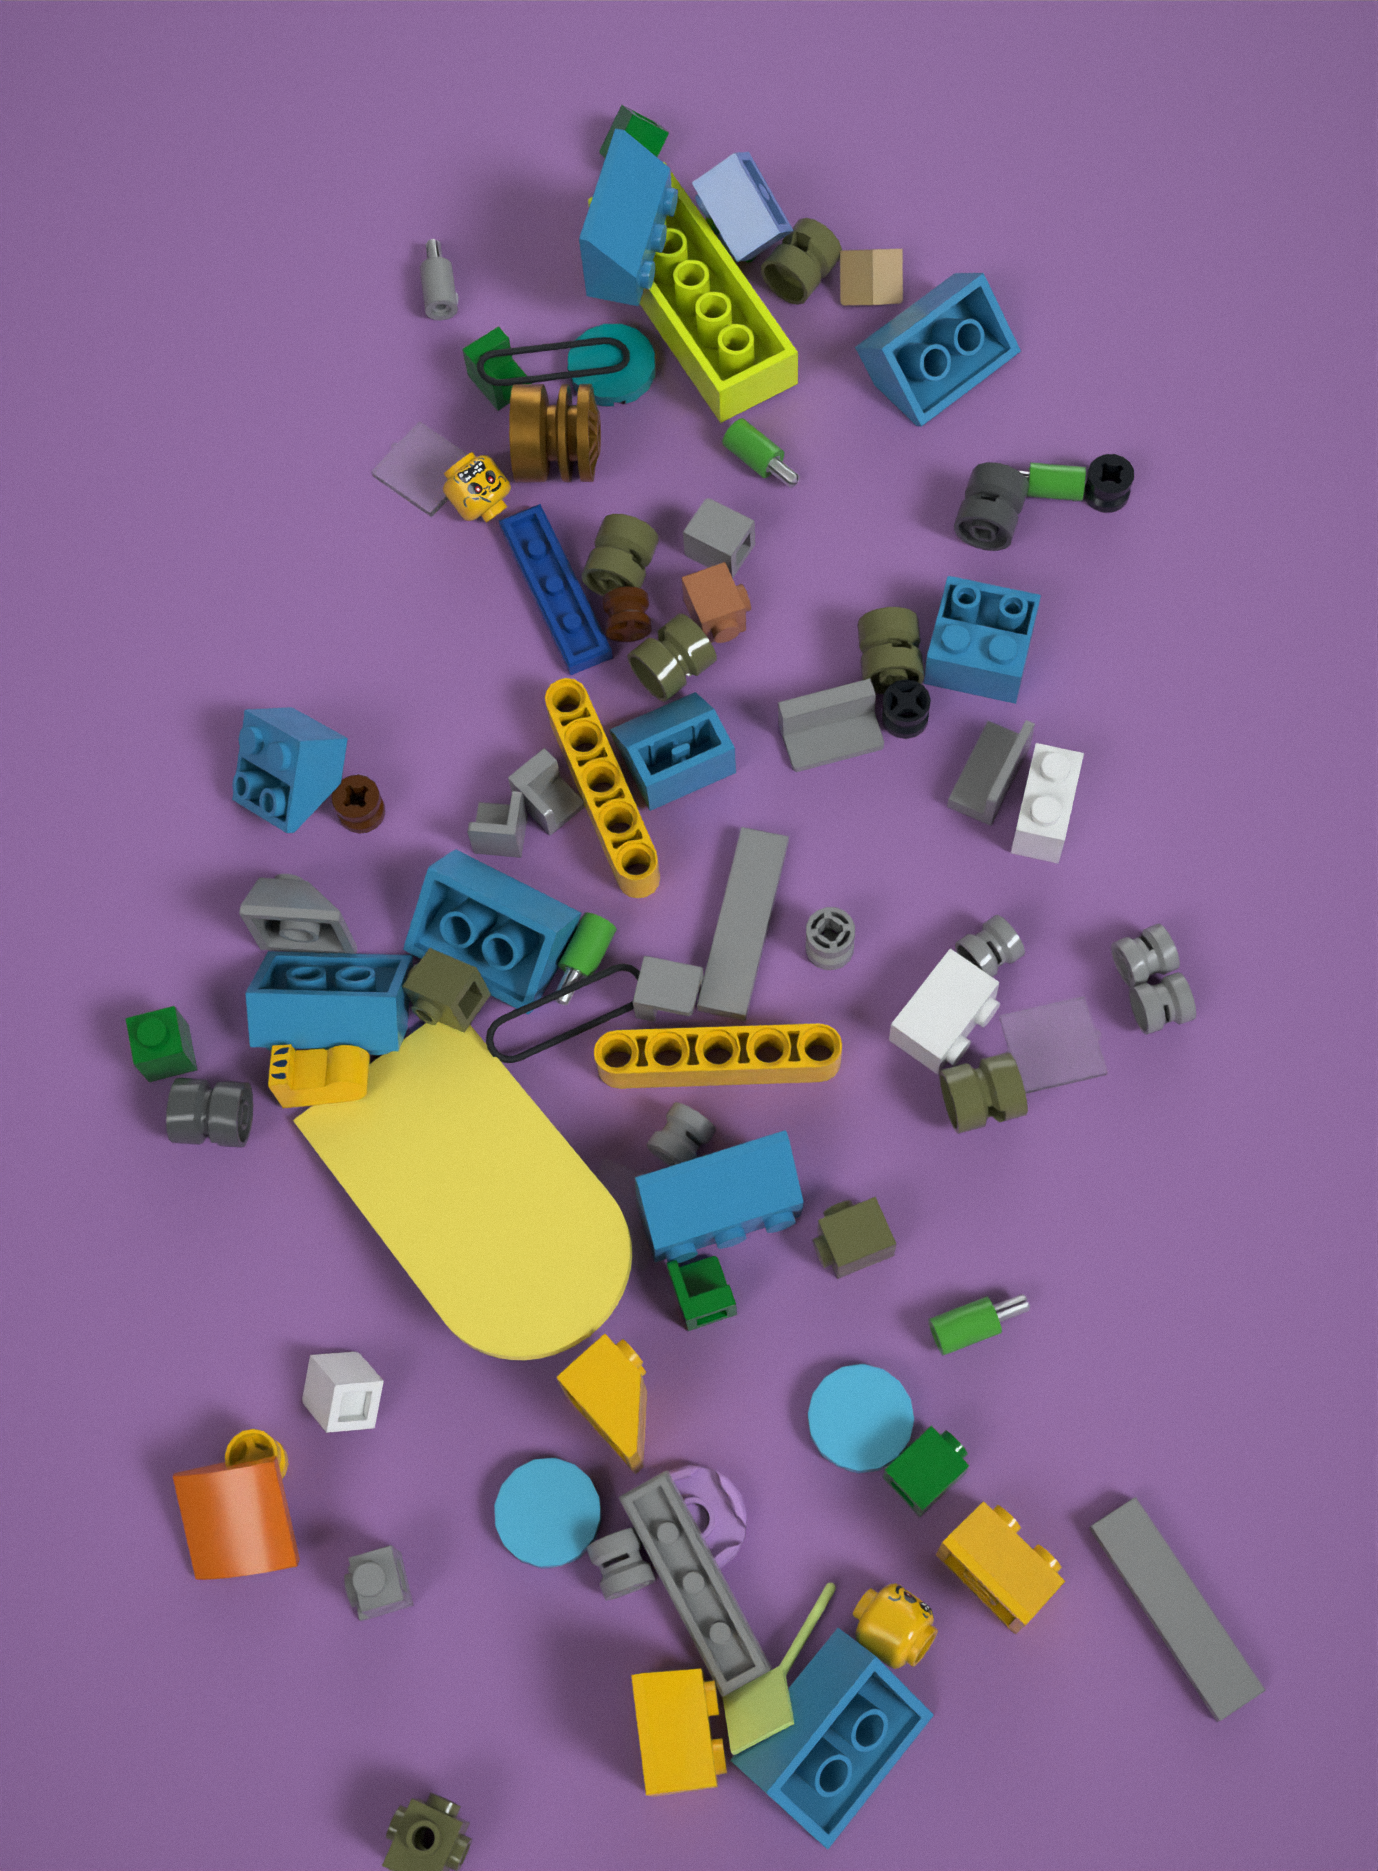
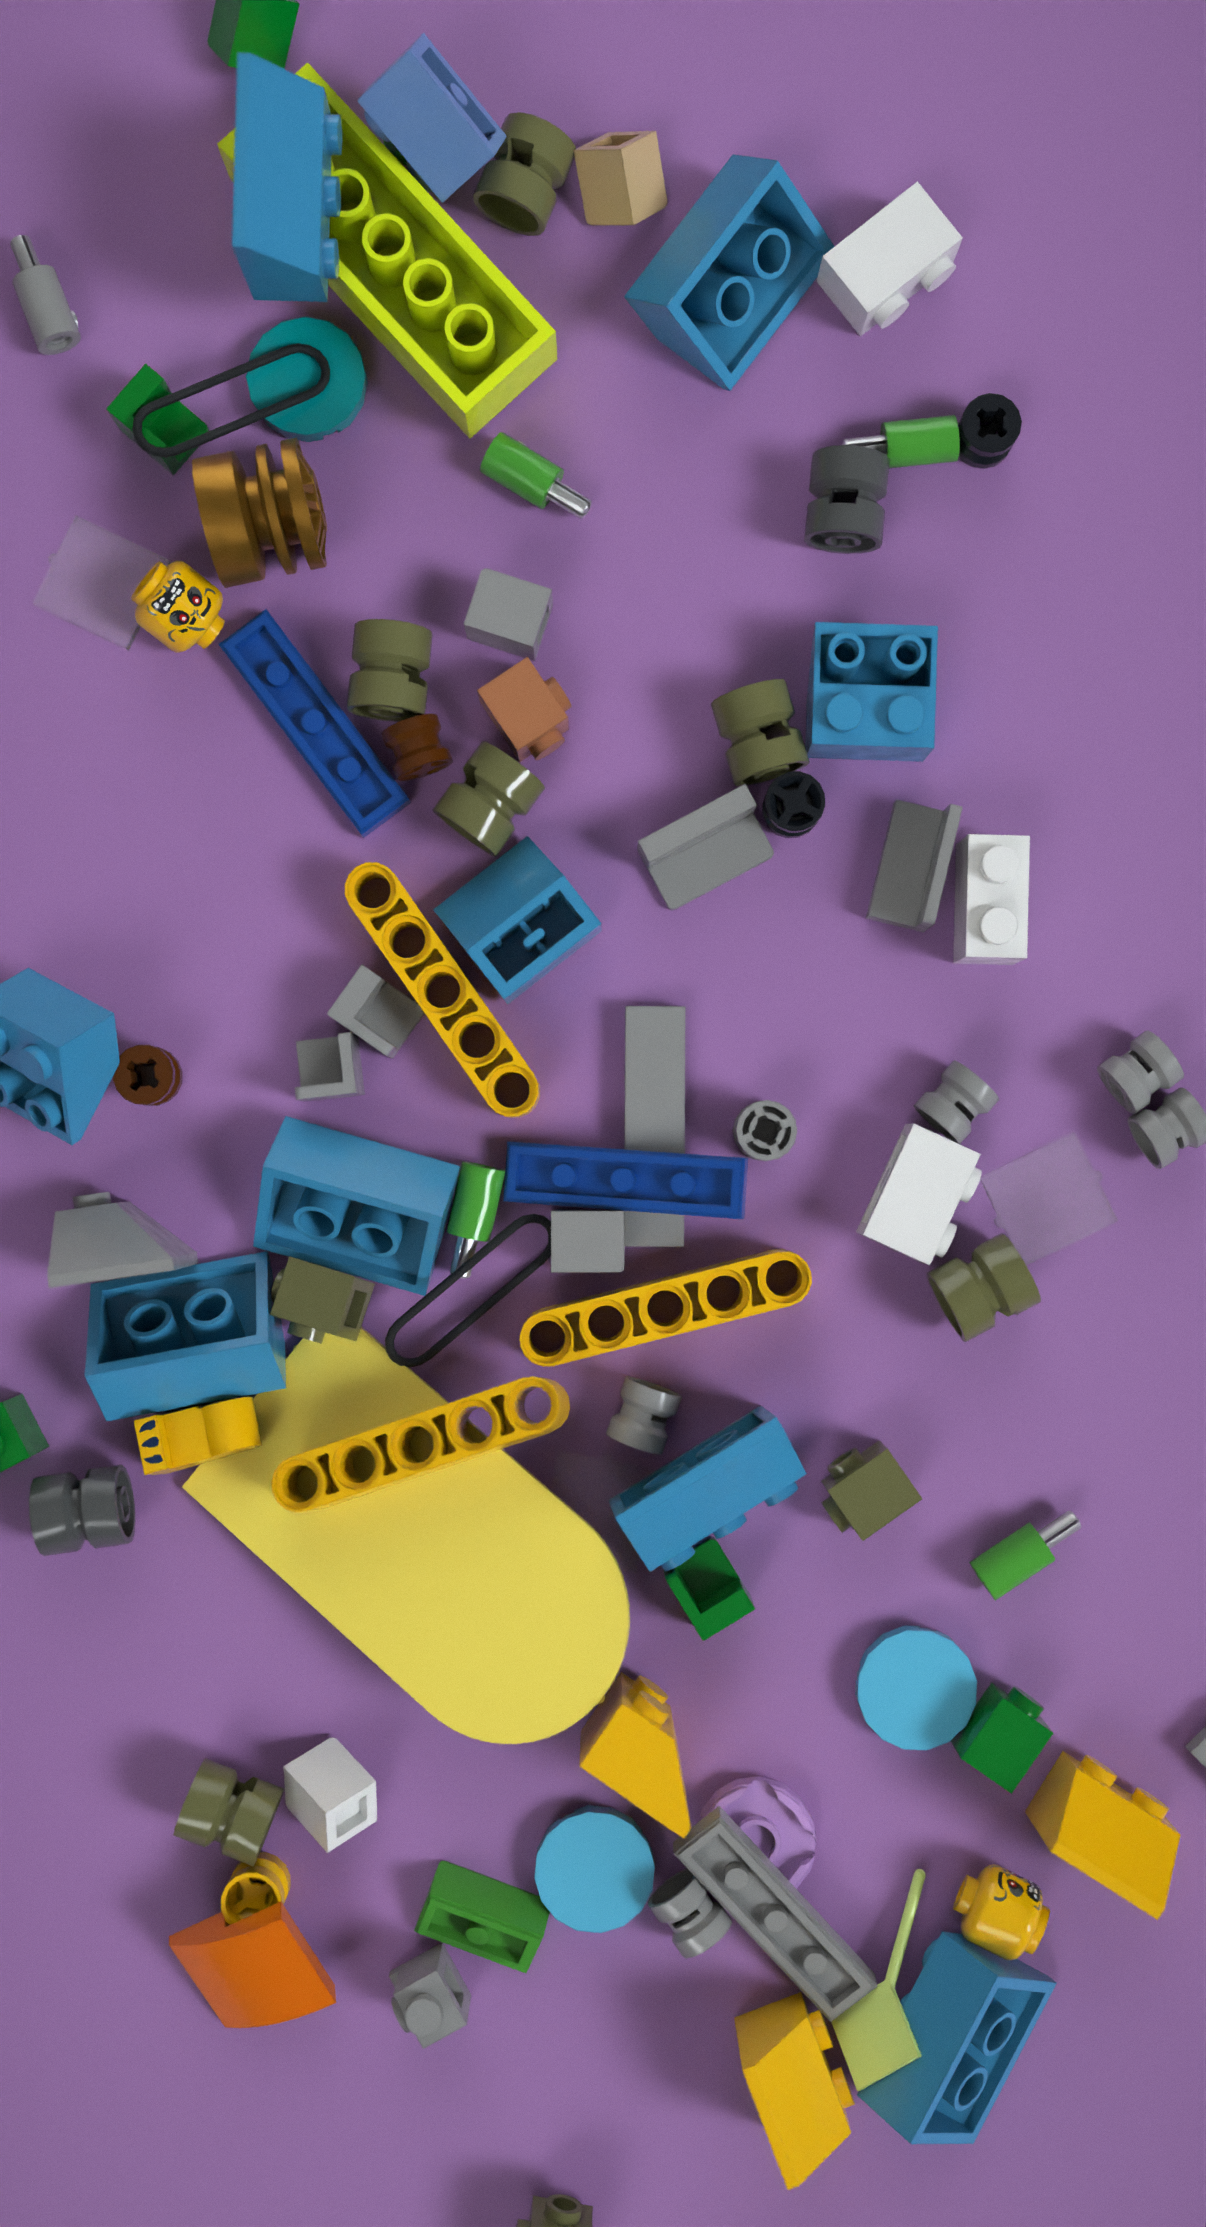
camera: 20 degrees left, 20 degrees up
(249, 1379) = (228, 1812): none -> olive wheel
(441, 1535) = (483, 1916): none -> bright green slope
(474, 1095) = (392, 1450): none -> yellow beam
(721, 951) = (626, 1180): none -> blue tile
(1056, 359) = (890, 260): none -> white brick

